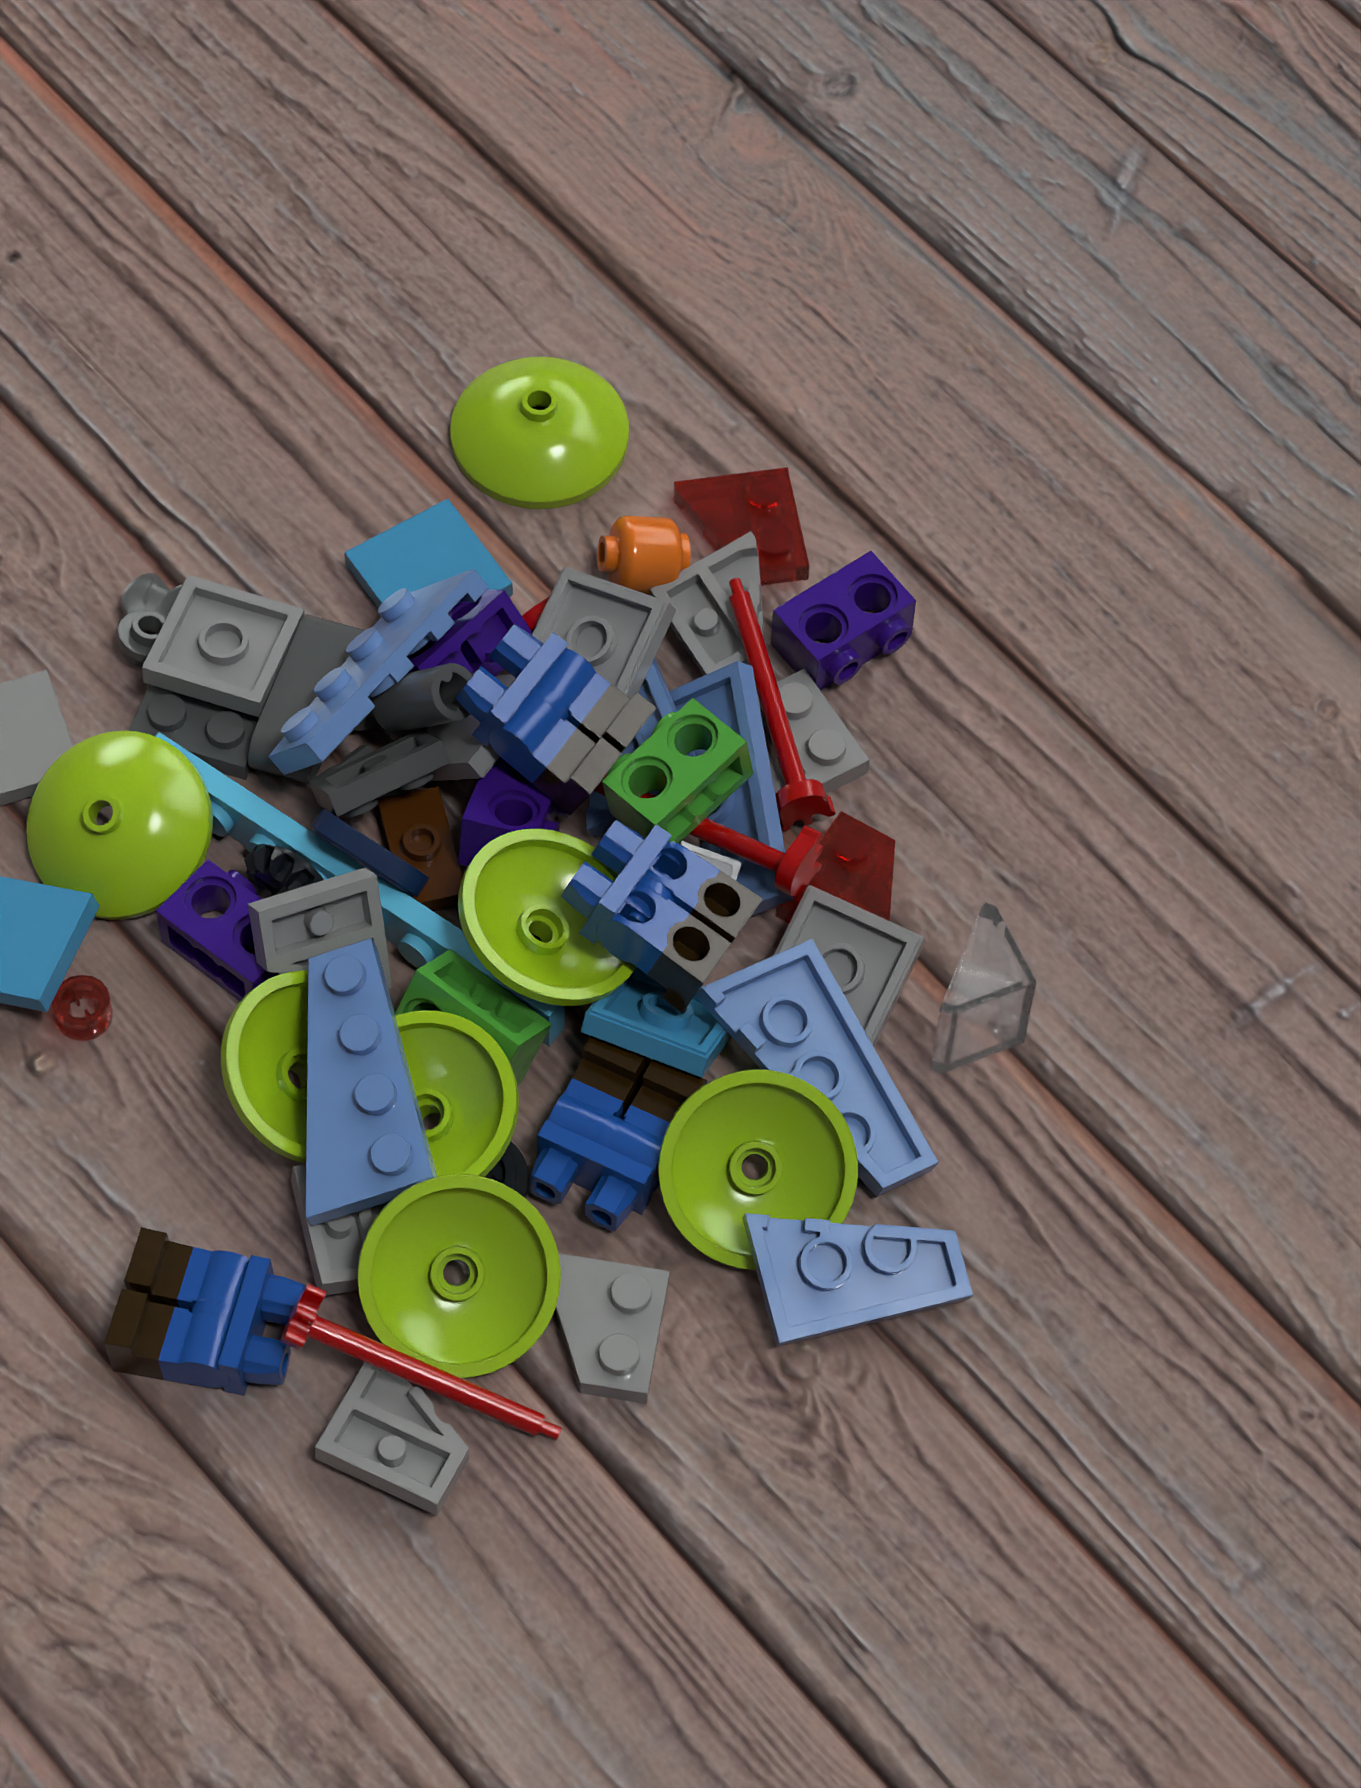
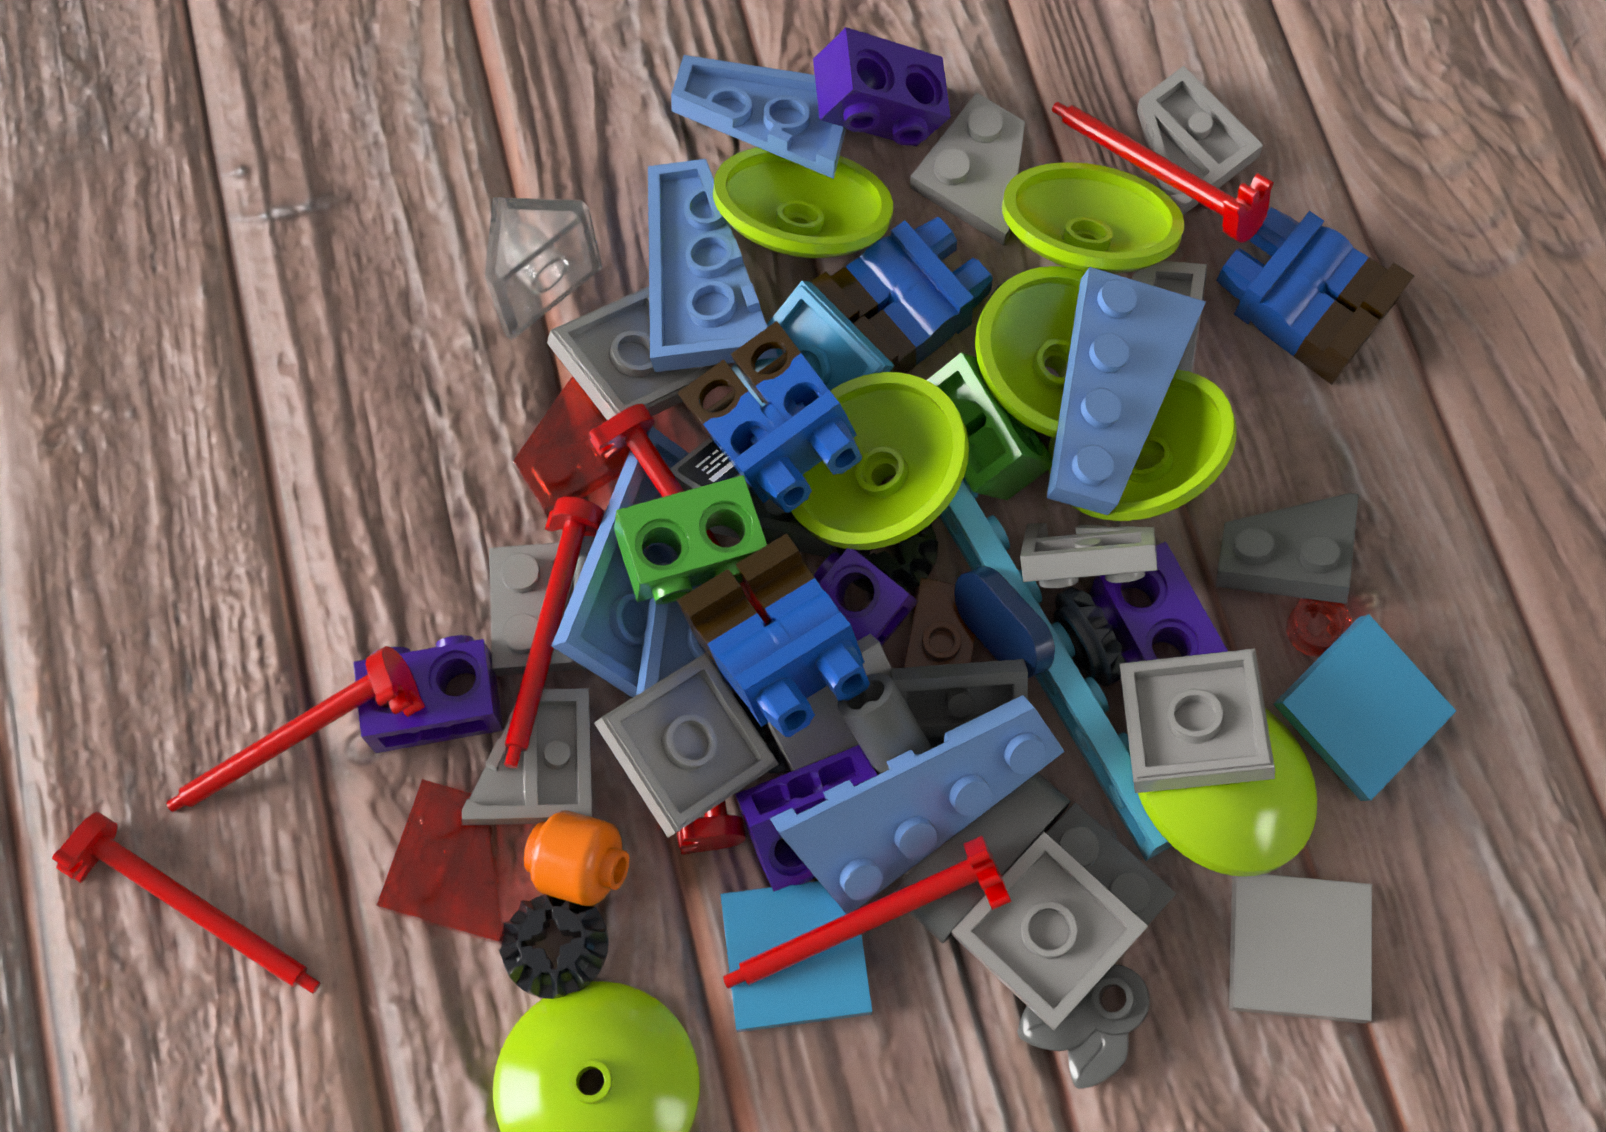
camera: 150 degrees left, 10 degrees up
(129, 1054) = (1292, 550): none -> dark grey wing
(163, 817) = (1196, 721): none -> light grey tile
(300, 642) = (978, 867): none -> red piece
(602, 493) = (578, 960): none -> black gear
(745, 1331) = (881, 87): none -> dark purple brick
(873, 583) = (387, 680): none -> red piece
(943, 414) = (95, 841): none -> red piece

